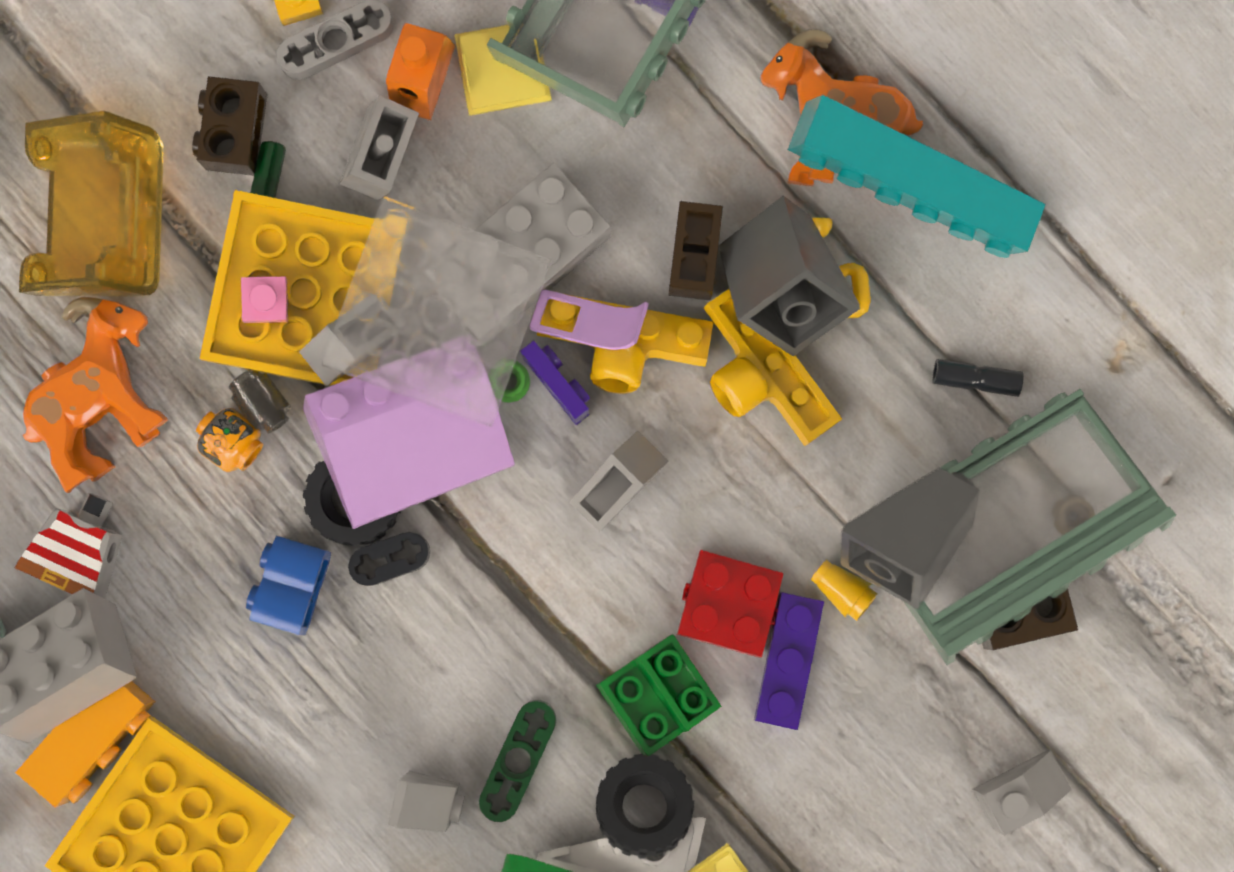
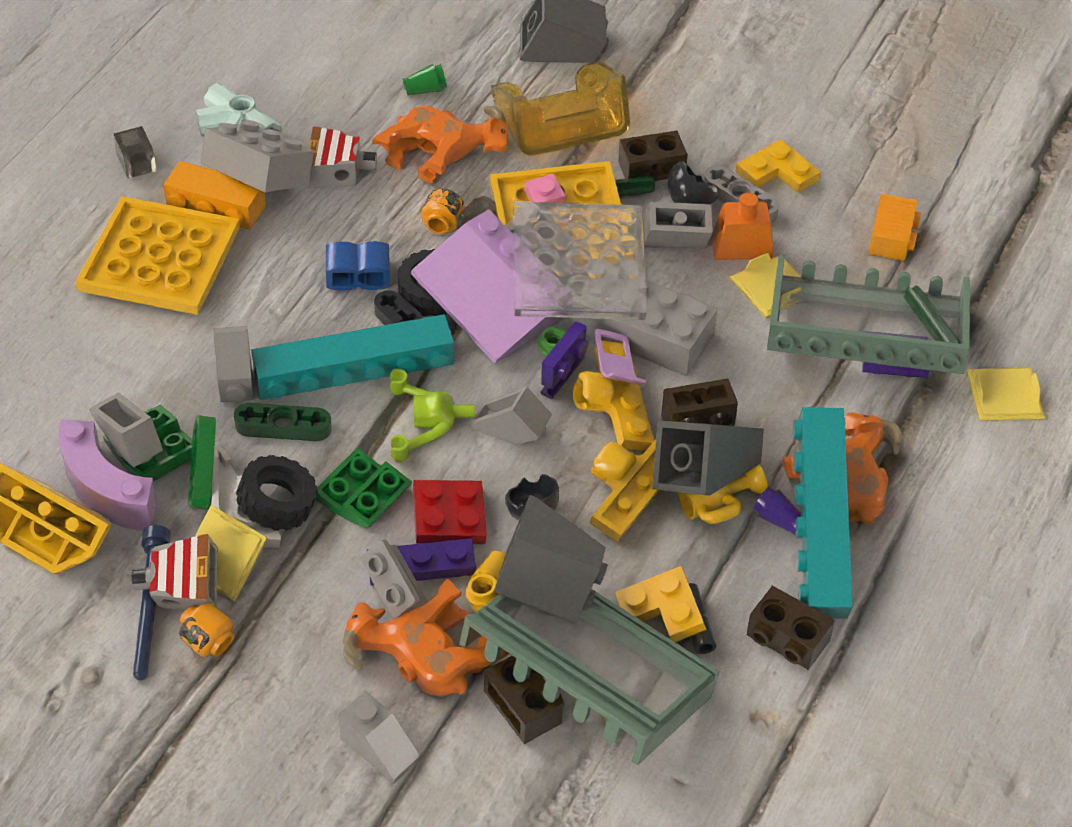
camera: 70 degrees right, 35 degrees down
(316, 102) = (688, 187): none -> black hair
(449, 644) = (352, 356): none -> teal brick
(569, 573) = (431, 410): none -> lime piece
(755, 501) = (544, 489): none -> black hair
(833, 709) = (392, 578): none -> light grey bracket
(863, 221) = (777, 509): none -> dark purple cone
(892, 624) = (481, 590): none -> yellow cone
(913, 708) = (419, 643): none -> orange animal
(948, 398) = (665, 596): none -> yellow plate
(1029, 276) = (792, 622): none -> dark brown brick

